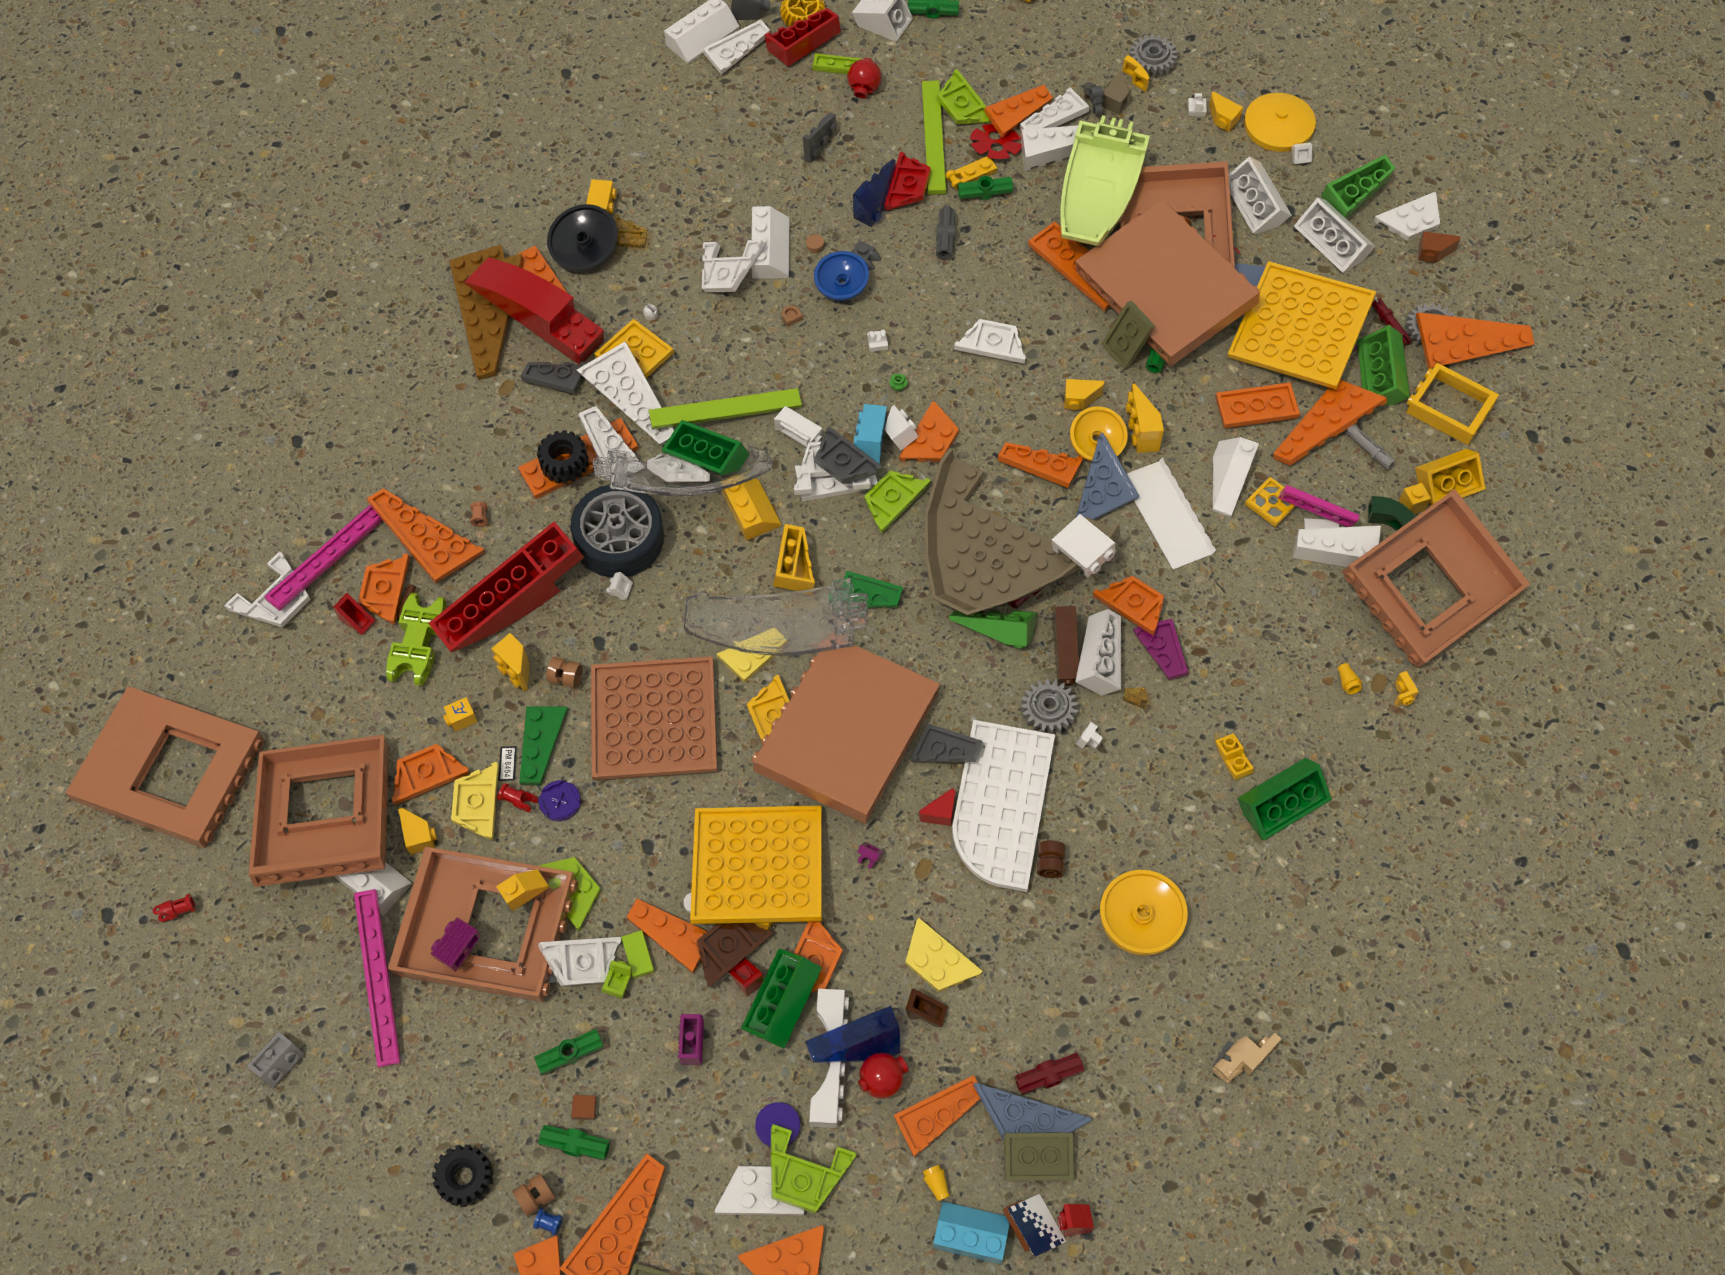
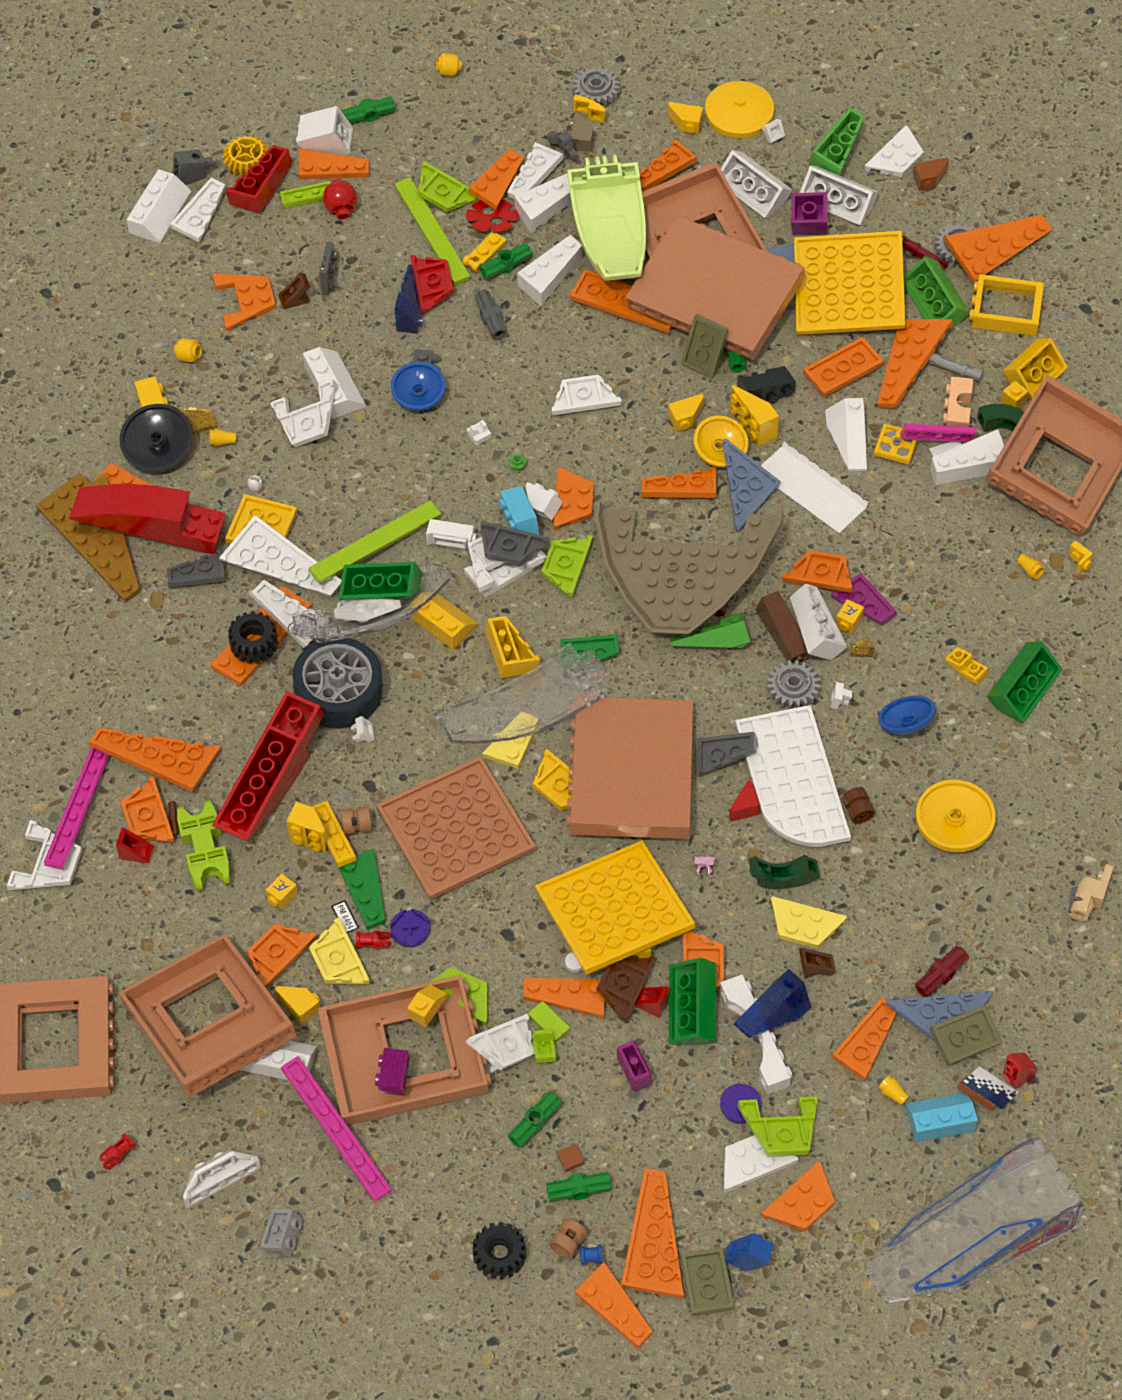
camera: 25 degrees left, 5 degrees down
(247, 973) = (217, 1174): none -> white wedge
(479, 514) = (196, 715): nougat bush -> none
(536, 677) = (335, 836): none -> yellow tile
(642, 258) = (221, 437): none -> yellow cone
(656, 168) = (188, 350): none -> yellow head
(742, 139) = (253, 295): none -> orange wing
(779, 149) = (295, 292): none -> reddish brown slope
(791, 315) = (387, 438): medium nougat tile -> none
(814, 243) = (374, 366): medium nougat tile -> none
(873, 45) = (329, 165): none -> orange wing
(882, 1075) = (808, 1026): red brick -> none
(945, 902) = (784, 875): none -> dark green arch
(1022, 210) = (549, 270): none -> white wedge
(1084, 545) = (761, 536): white panel -> none
(1139, 659) = (849, 616): none -> yellow brick
(1145, 784) = (907, 714): none -> blue dish
(1172, 398) = (770, 385): none -> black wedge
(1176, 152) = (665, 166): none -> orange wing
(1197, 105) = (658, 120): white tile -> none
(1296, 243) = (809, 213): none -> magenta brick
(1360, 473) = (959, 393): none -> light nougat arch

